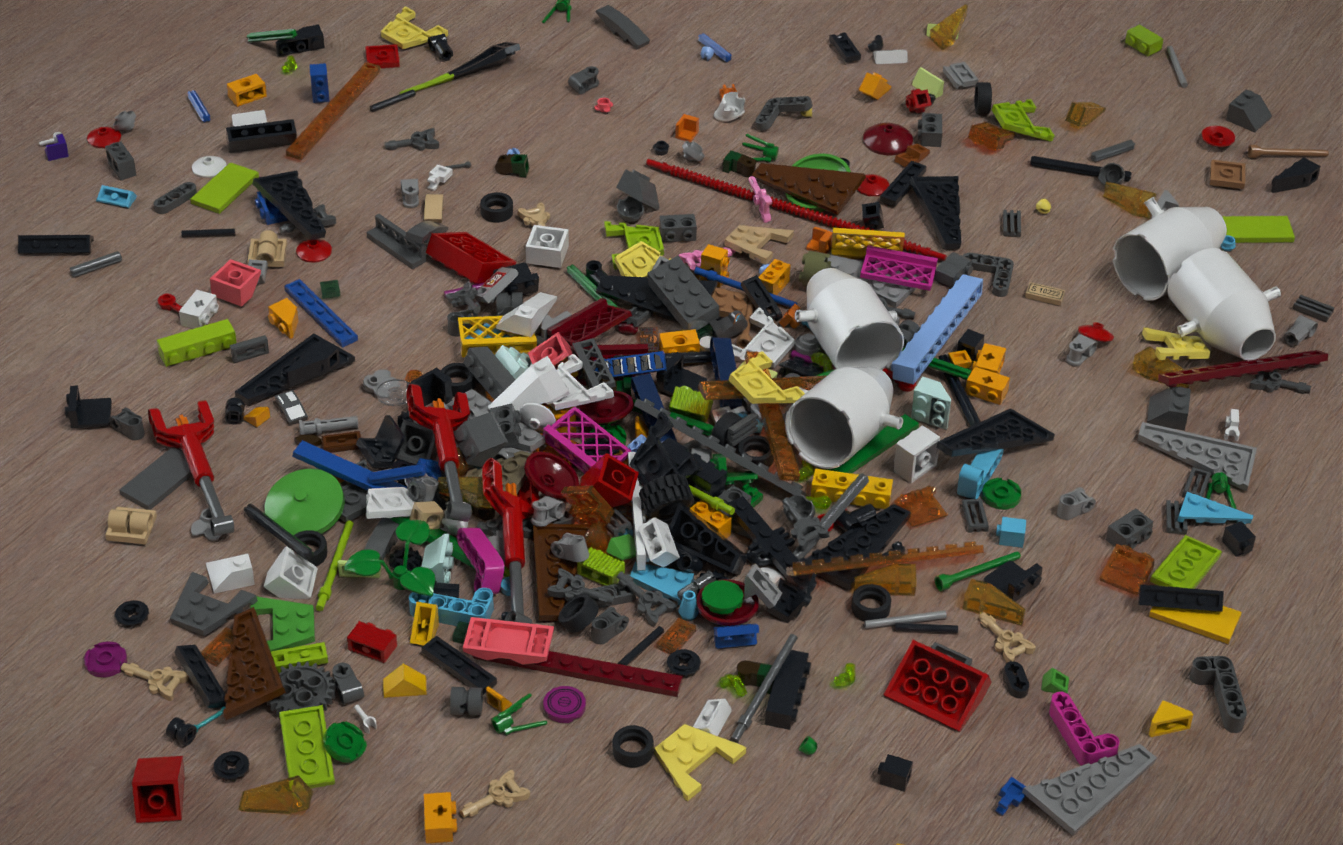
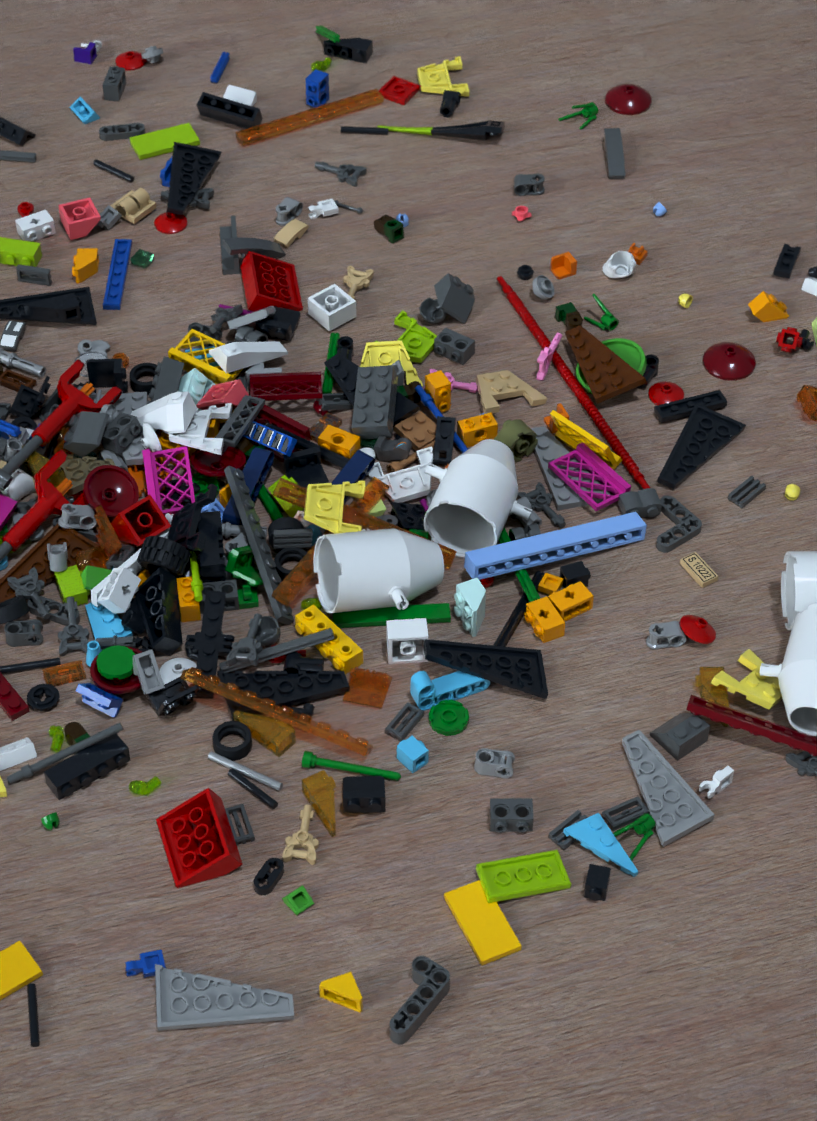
camera: 40 degrees right, 5 degrees up
(208, 166) = (173, 118): white dish -> none
(246, 90) = (265, 70): light orange brick -> none
(496, 199) = (337, 248): black tyre -> none
(718, 50) = (673, 208): blue axle -> none
(781, 104) = (659, 283): dark grey beam -> none
(821, 502) = (290, 632): clear neon green arm -> none
(873, 216) = (622, 420): black brick -> none
(895, 772) = (85, 885): black brick -> none
(913, 153) = (734, 386): dark orange slope -> none
(930, 129) = (772, 371): dark grey brick -> none
(1077, 733) = (262, 948): dark pink beam -> none
(1127, 569) = (467, 845): clear orange plate -> none
(1180, 598) = (476, 898): black plate -> none

